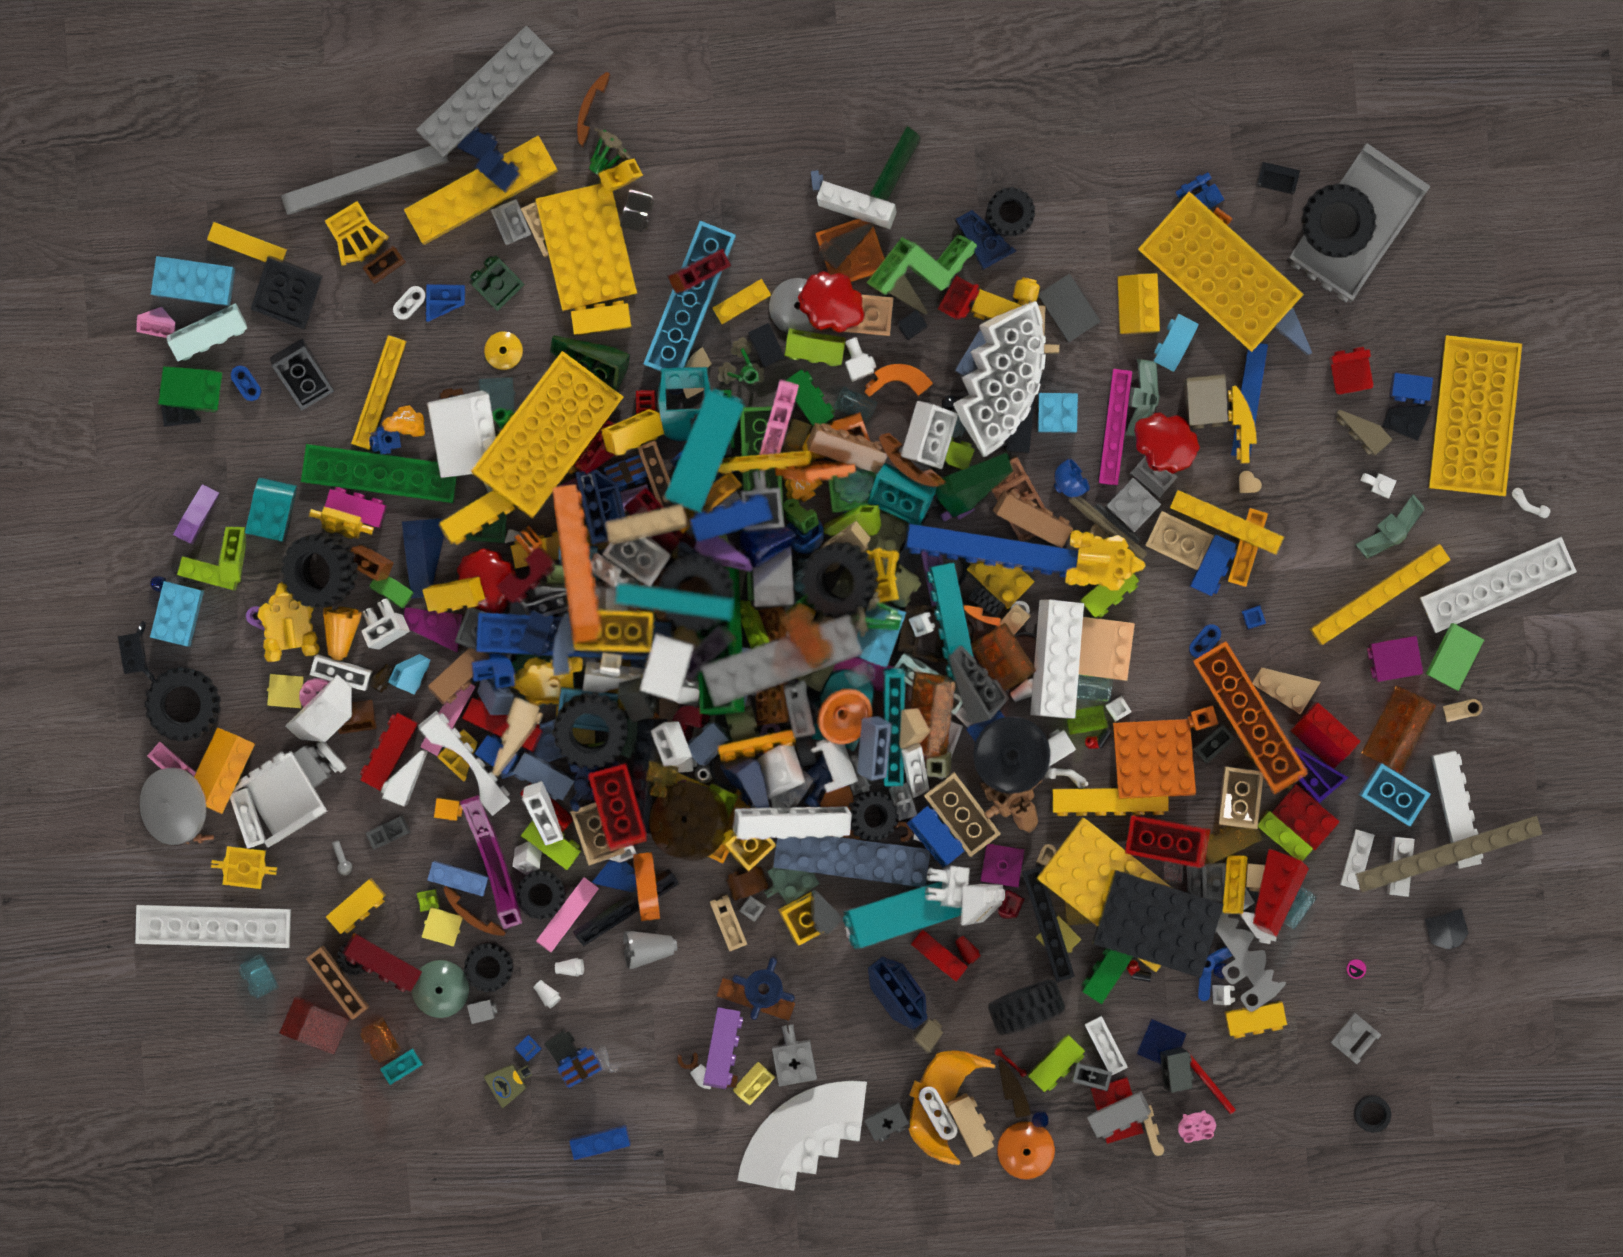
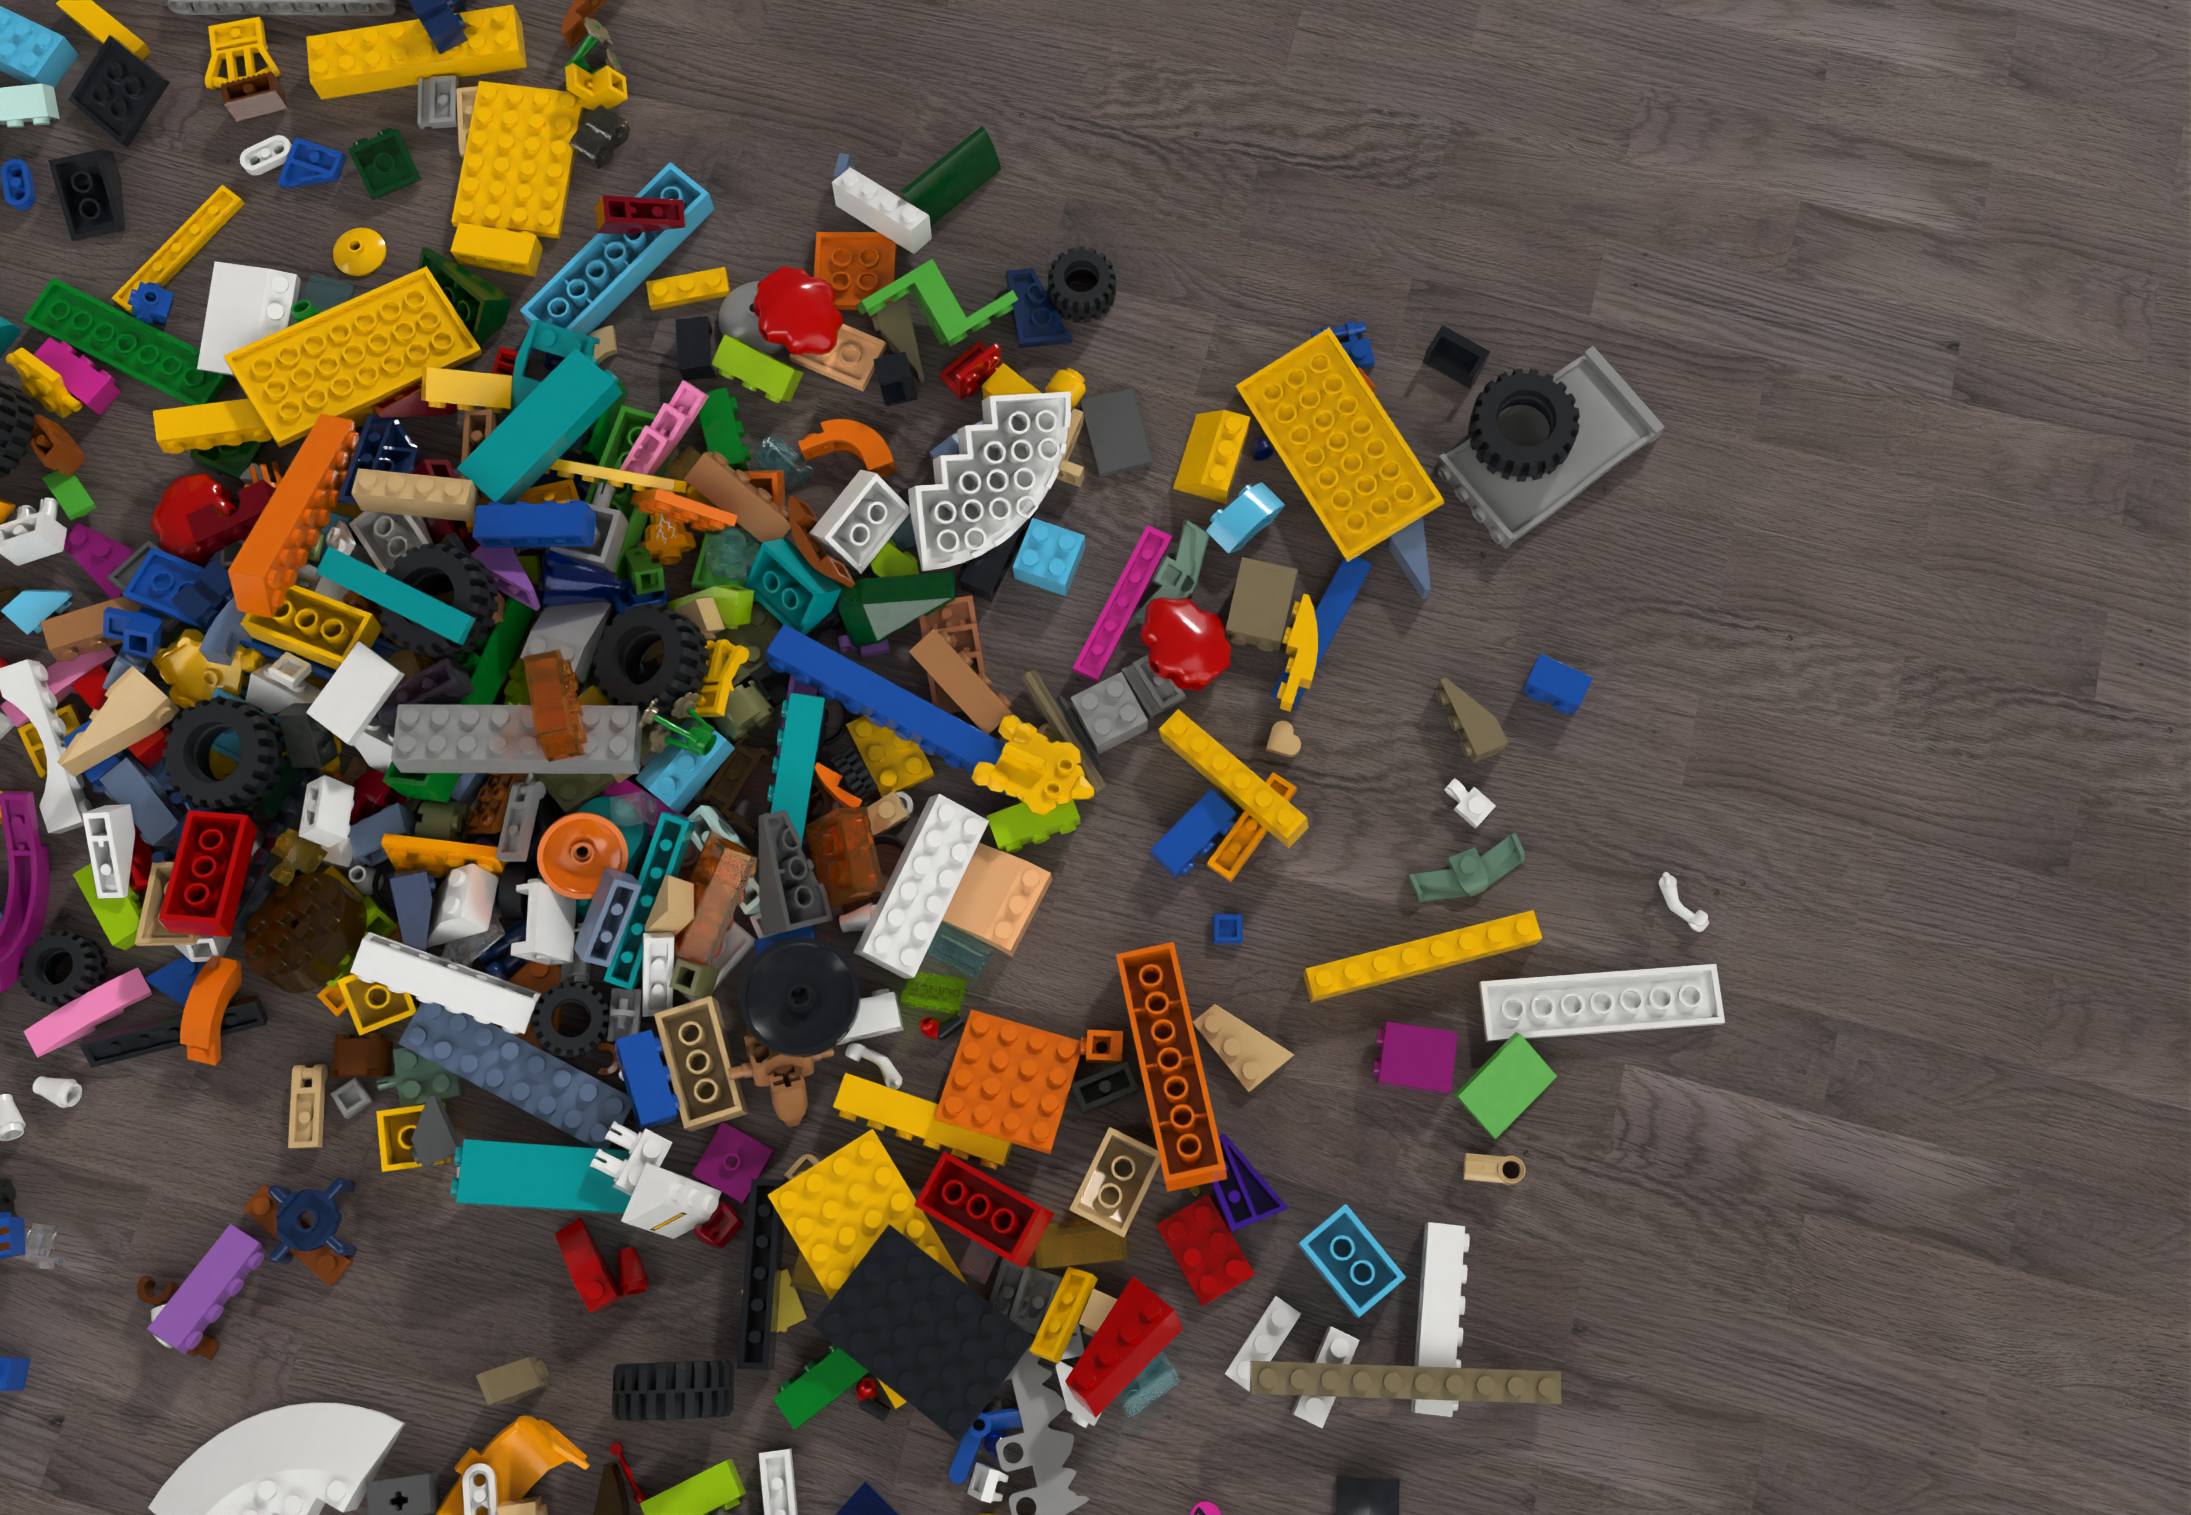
camera: 20 degrees right, 15 degrees down
(405, 421) = (184, 286): light orange rock -> none
(422, 550) = (128, 463): dark blue wedge -> none
(453, 595) = (137, 519): yellow brick -> none
(527, 858) = (70, 912): white panel -> none
(627, 472) = (439, 443): brick -> none
(646, 948) = (171, 1099): light grey cone -> none
(750, 373) = (632, 366): dark tan plant -> none
(754, 1083) = (238, 1364): light yellow slope -> none
(791, 1050) = (310, 1333): light grey brick -> none
(840, 247) = (844, 252): clear smoke slope -> none
(859, 364) = (803, 404): white brick -> none
(898, 992) = (502, 1297): dark blue wedge -> none
(921, 624) = (747, 769): white tile -> none
(1069, 479) = (1033, 648): blue cylinder -> none
(1118, 708) = (986, 992): white tile -> none
(1168, 287) = (1260, 449): none -> clear blue hinge
(1179, 540) = (1156, 783): tan plate -> none
(1206, 642) = (1143, 934): blue plate -> none
(1283, 836) = (1162, 1266): lime brick -> none
(1325, 735) = (1275, 1135): red slope -> none
(1351, 371) = (1479, 633): red bracket -> none
(1398, 729) = (1389, 1164): clear orange slope -> none
(1407, 420) = (1536, 729): black wing -> none
(1475, 415) = (1637, 755): yellow plate -> none

